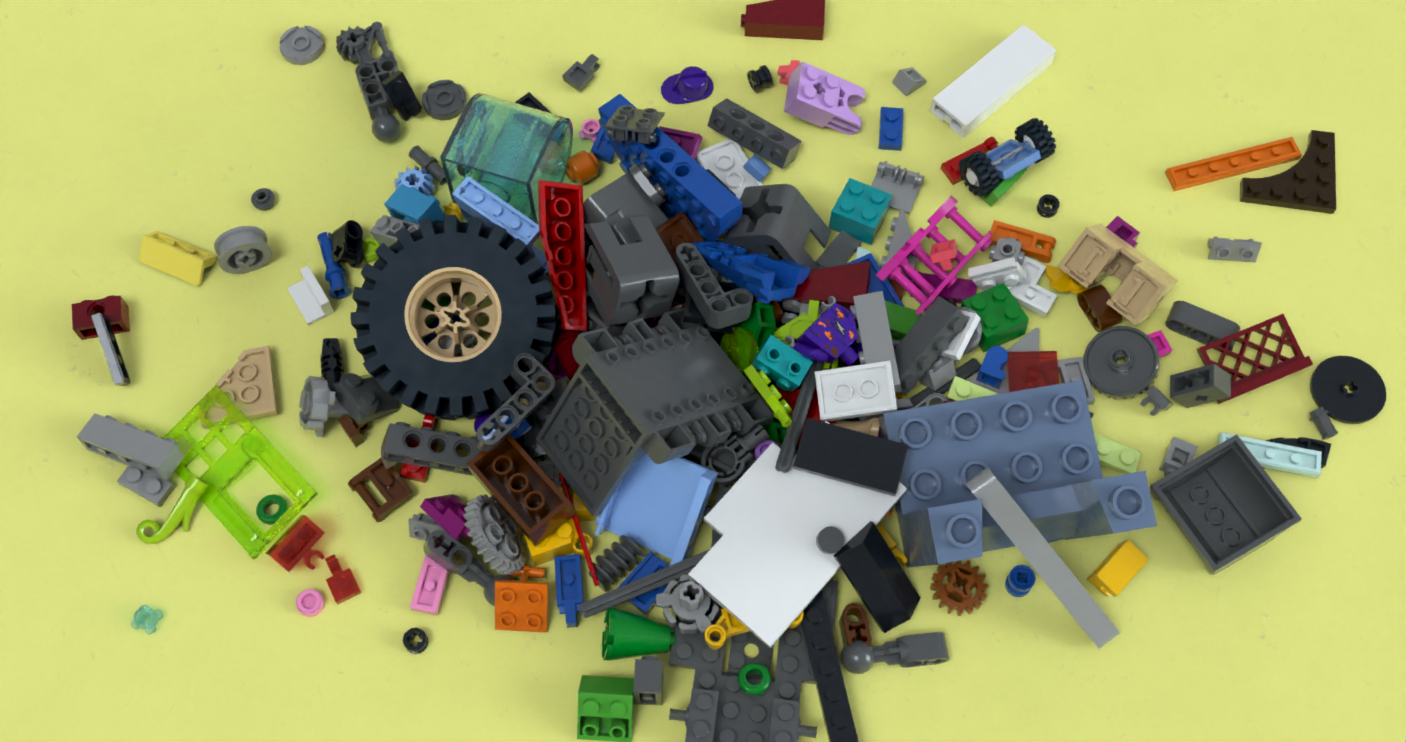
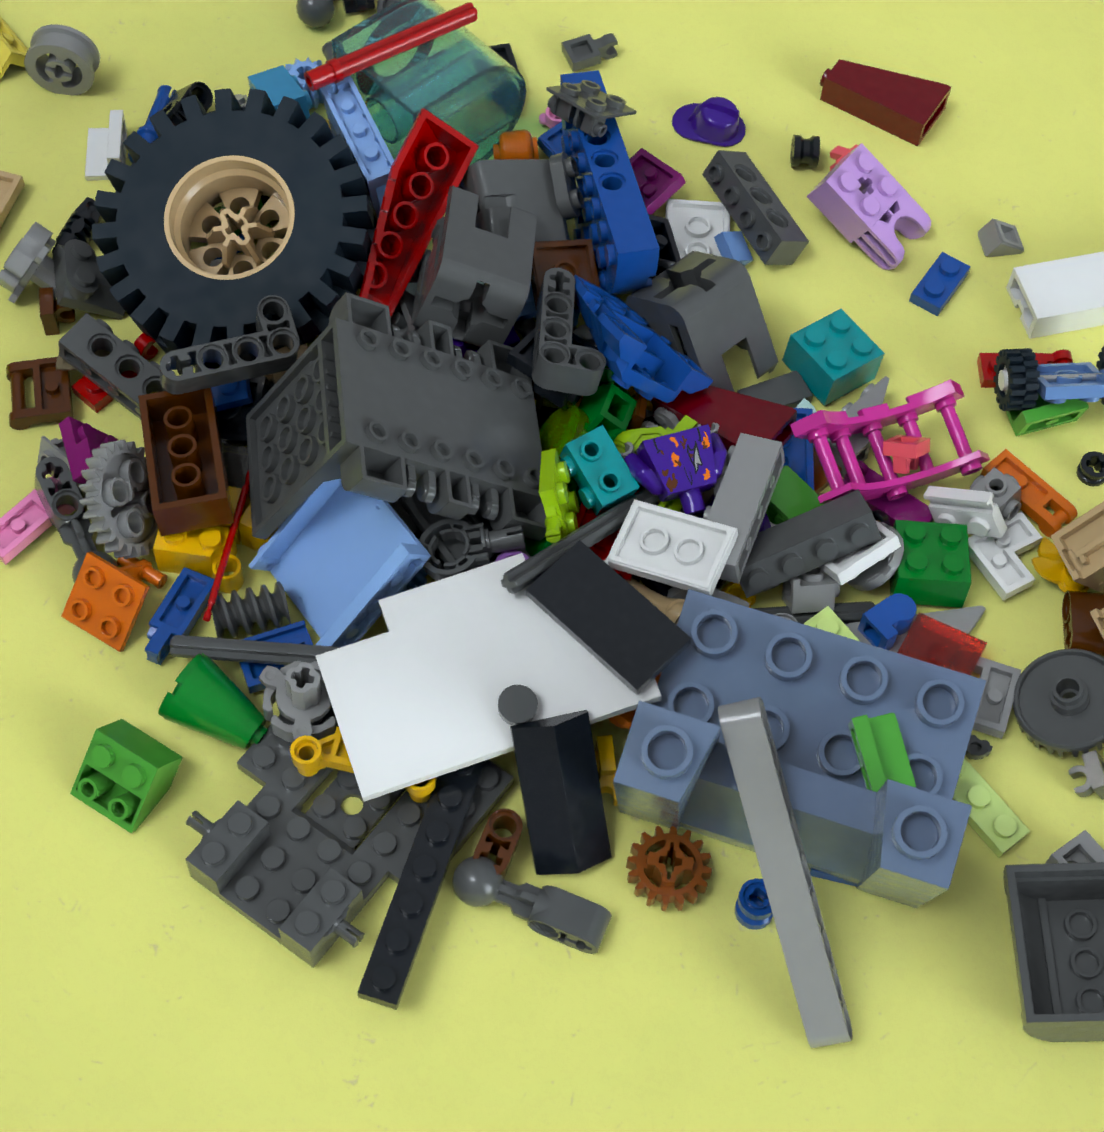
camera: 25 degrees right, 5 degrees down
(263, 204) = (127, 24): dark grey plate -> none
(460, 177) = (358, 60): none -> red axle
(648, 681) = (193, 766): dark grey brick -> none
(754, 668) = (324, 847): green piece -> none
(900, 183) = (907, 352): light grey hinge -> none
(1052, 458) = (880, 750): none -> bright green panel
(1118, 569) = (902, 959): yellow hinge -> none

